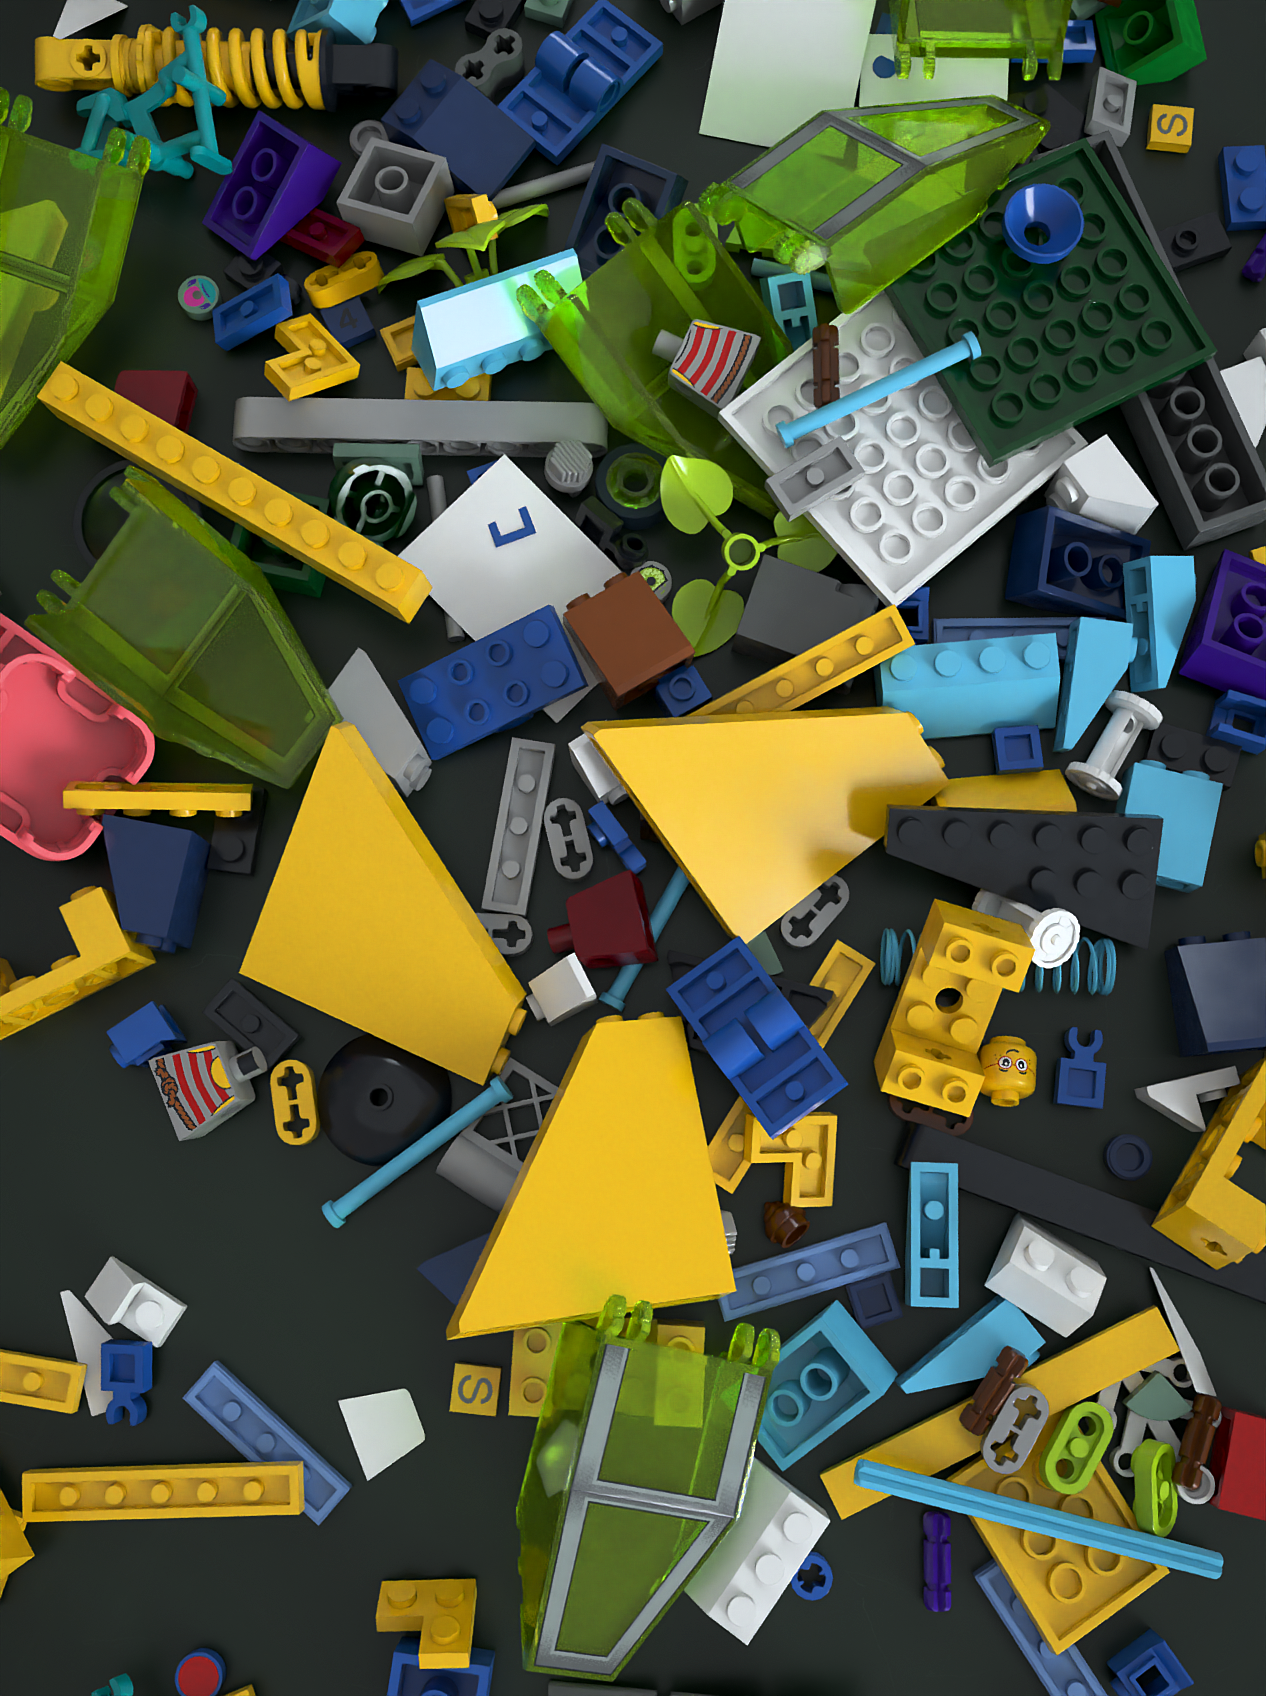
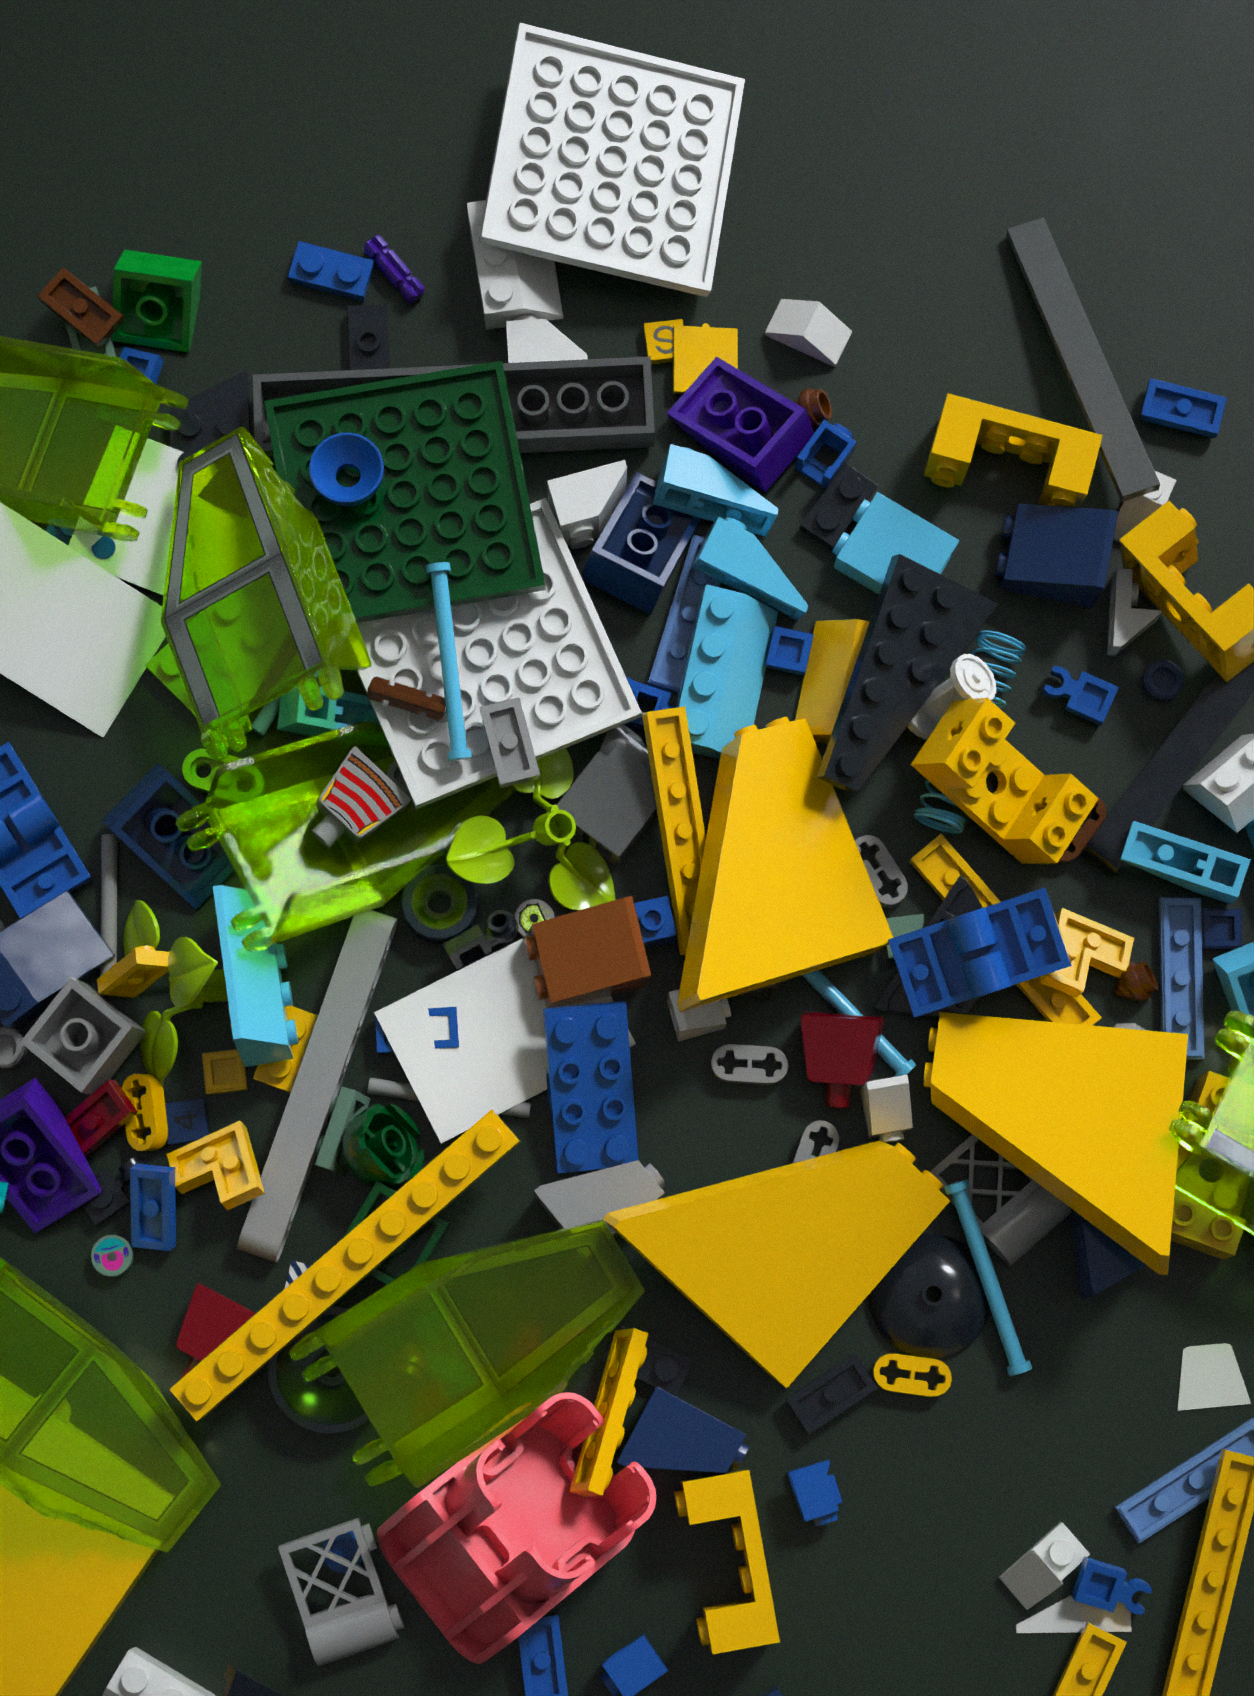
camera: 80 degrees left, 0 degrees up
(206, 1085) = (874, 1446): torso -> none
(475, 1389) = (1201, 1286): yellow tile -> none
(519, 827) = (725, 1104): light grey plate -> none
(569, 467) = (405, 958): light grey piece -> none
(607, 830) = (754, 1026): blue plate -> none
(1008, 1070) = (1064, 753): yellow head -> none
(1110, 105) = (217, 361): light grey plate -> none
(1128, 719) = (813, 569): white hose -> none
(1170, 128) = (251, 315): yellow tile -> none

